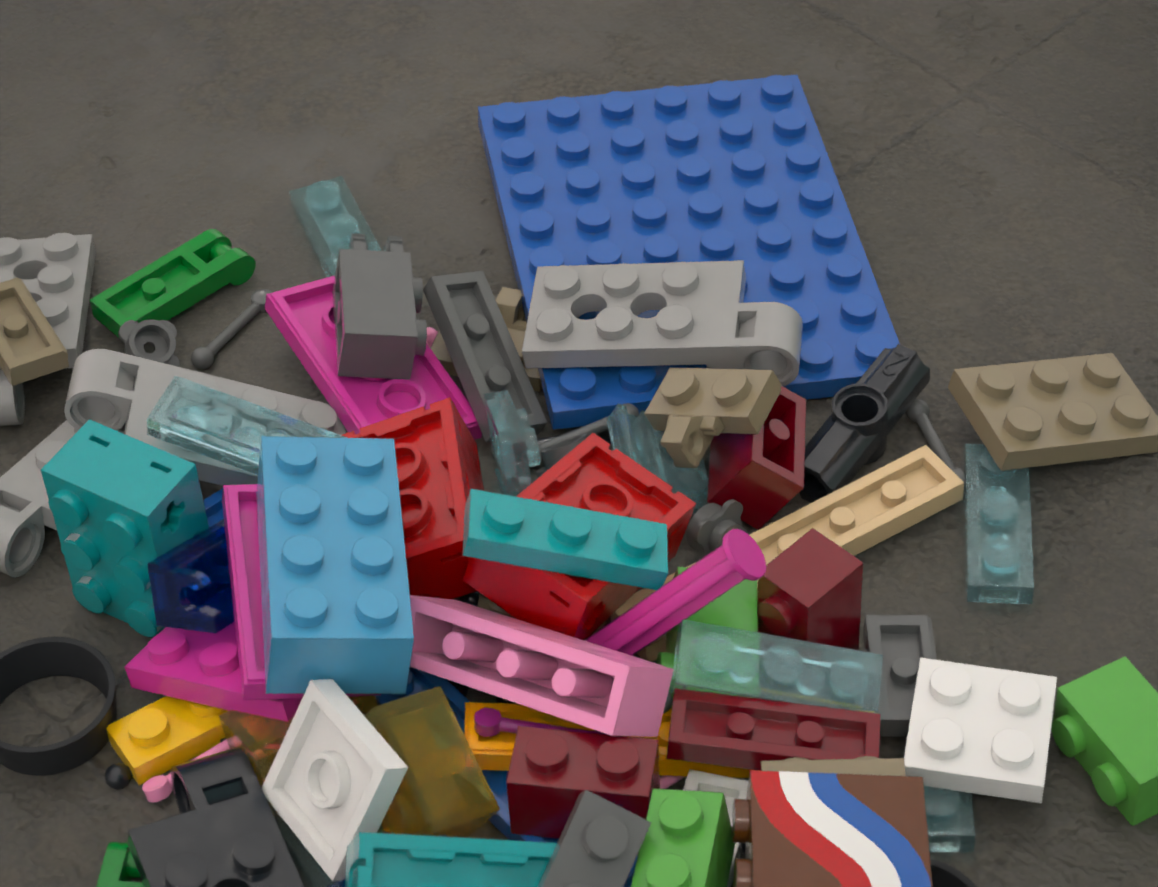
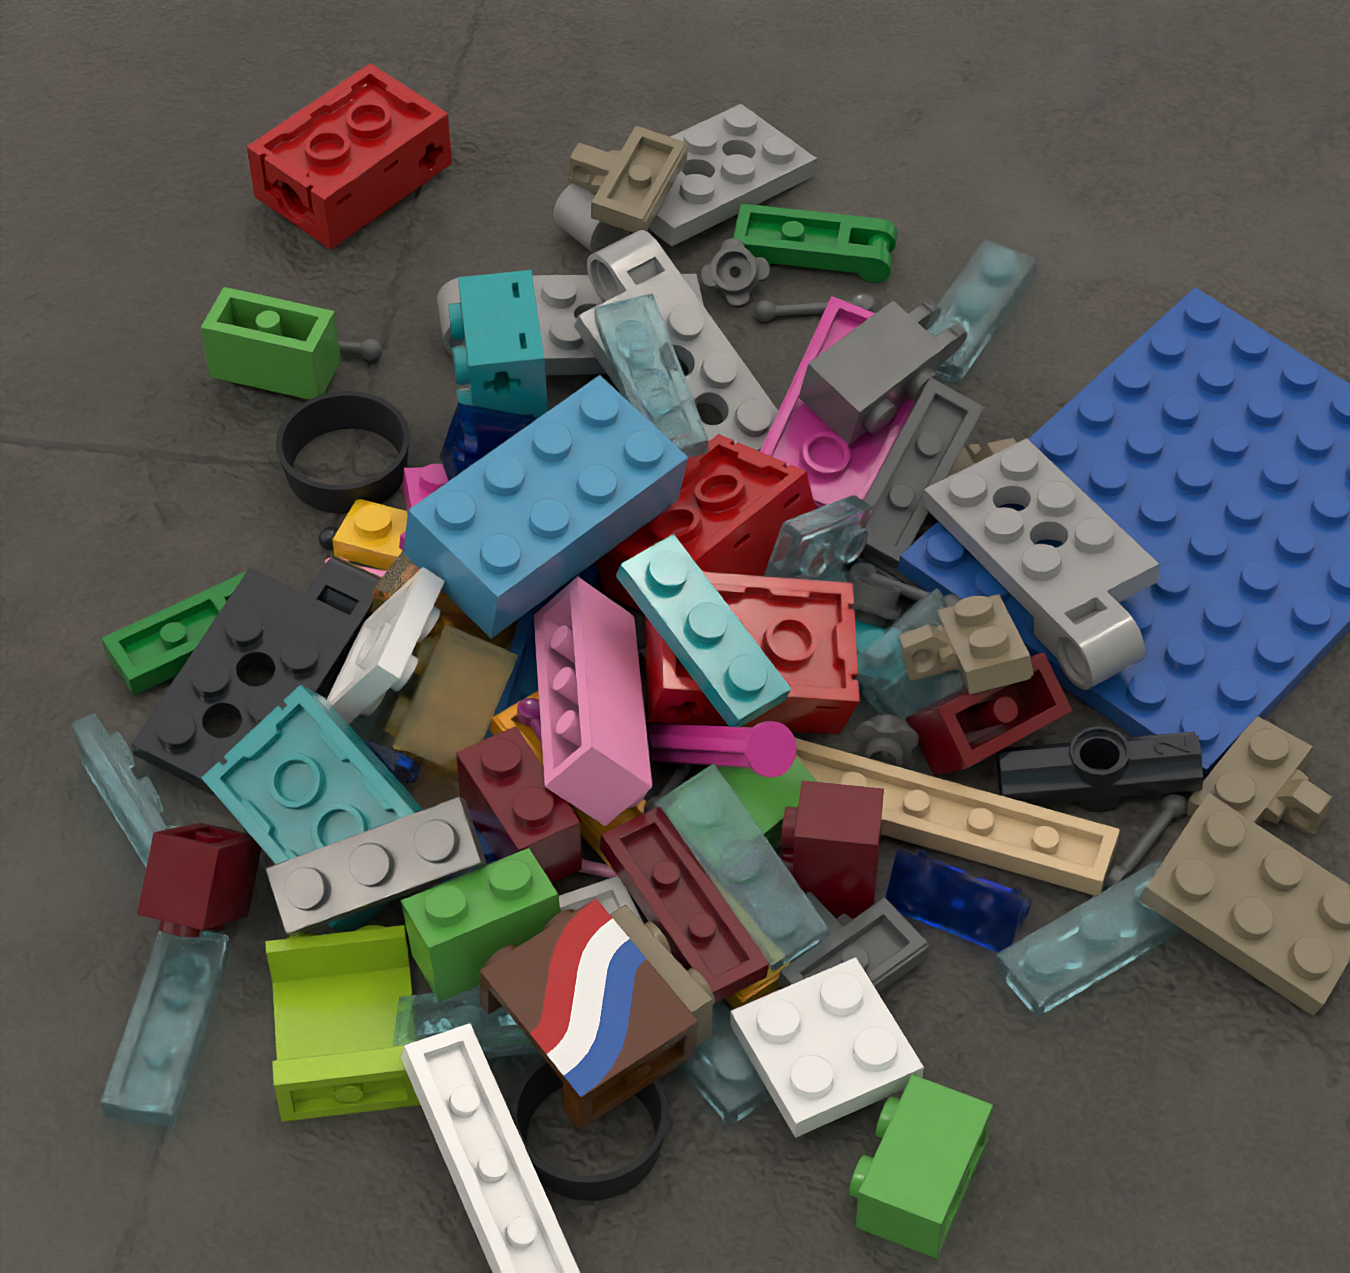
camera: 50 degrees right, 5 degrees up
(911, 575) = (956, 901): none -> clear blue hinge
(949, 347) = (1266, 781): none -> dark tan hinge

